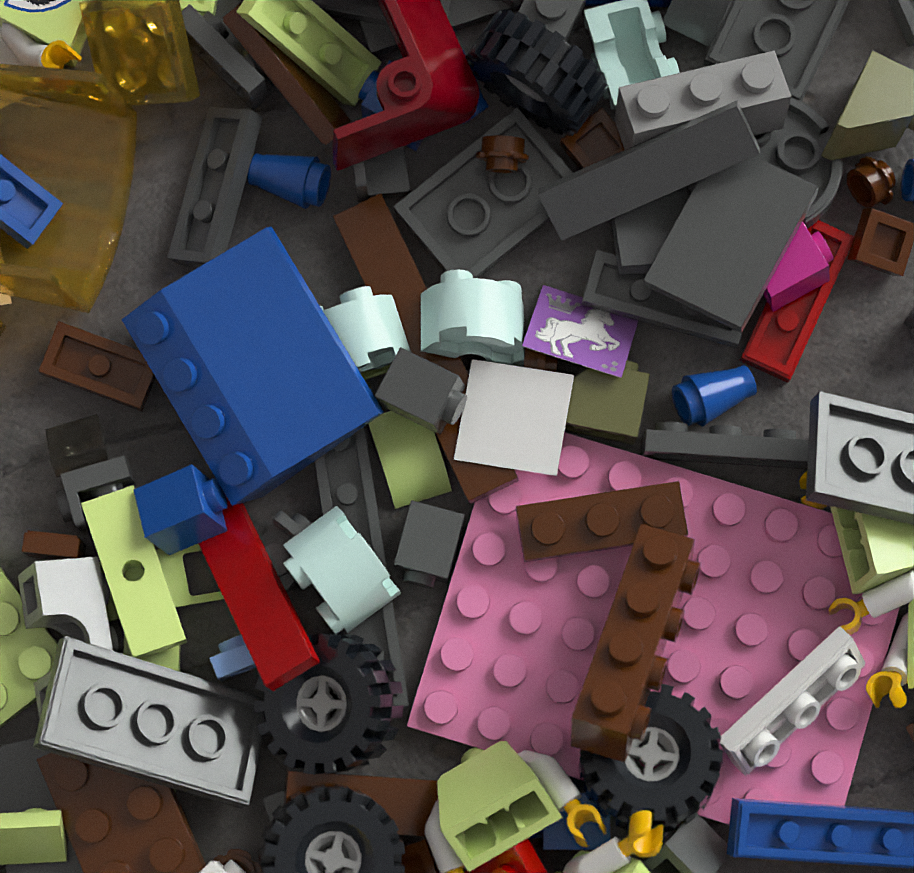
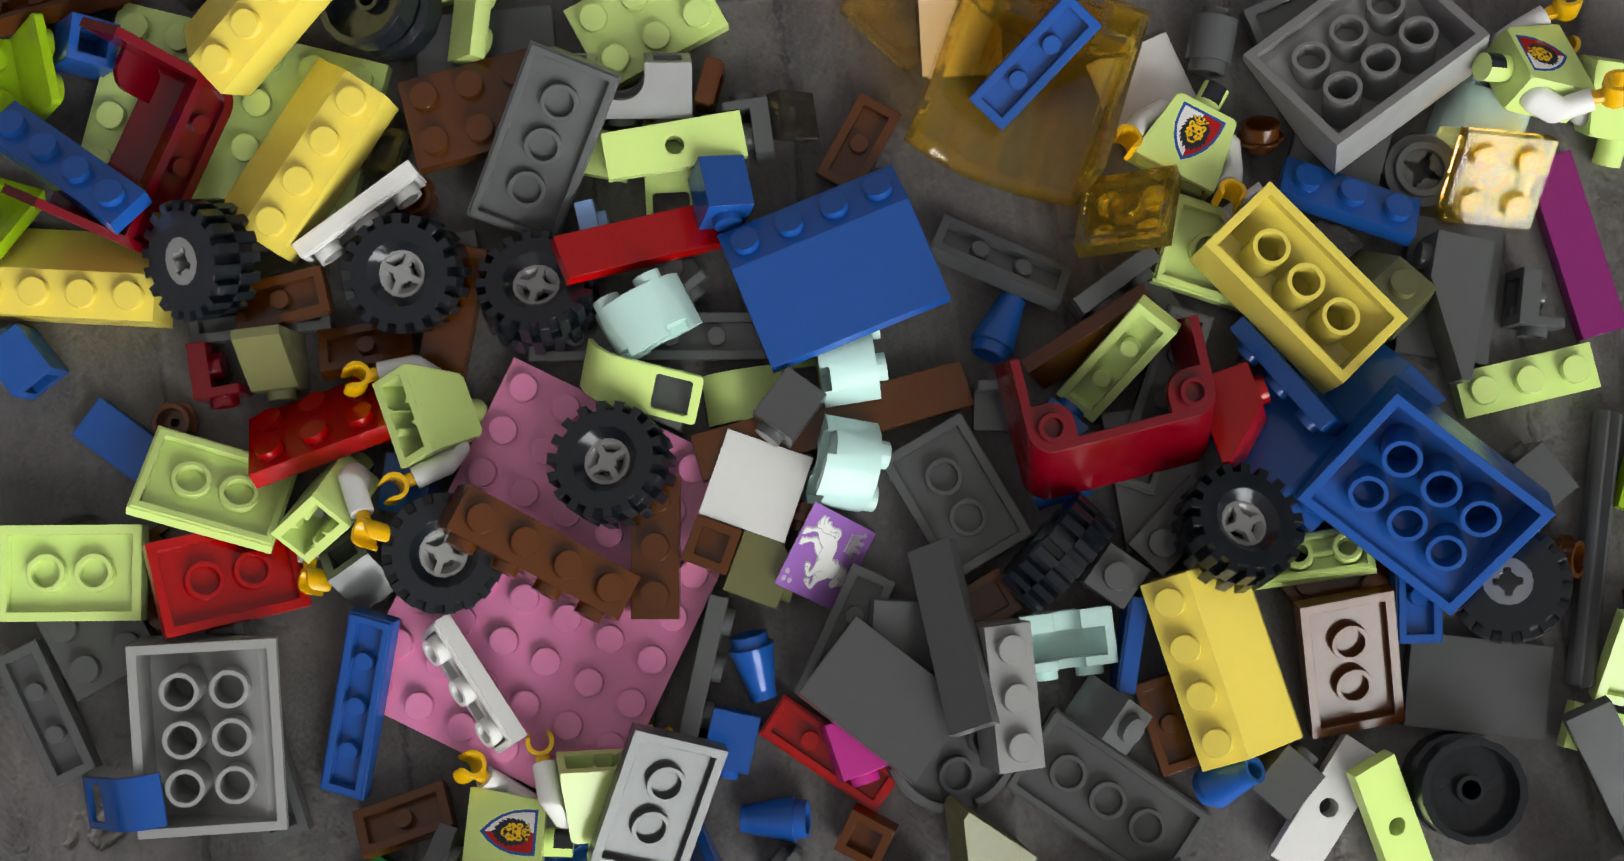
camera: 105 degrees right, 5 degrees up
(418, 576) = (632, 381): none -> yellowish green piece
(497, 599) = (590, 458): none -> black wheel
(502, 153) = (990, 512): reddish brown plate -> none
(589, 456) = (712, 544): none -> reddish brown plate
(790, 397) = (739, 733): none -> blue brick
(871, 182) = (922, 836): reddish brown plate -> none
(881, 343) = (777, 818): none -> blue cone

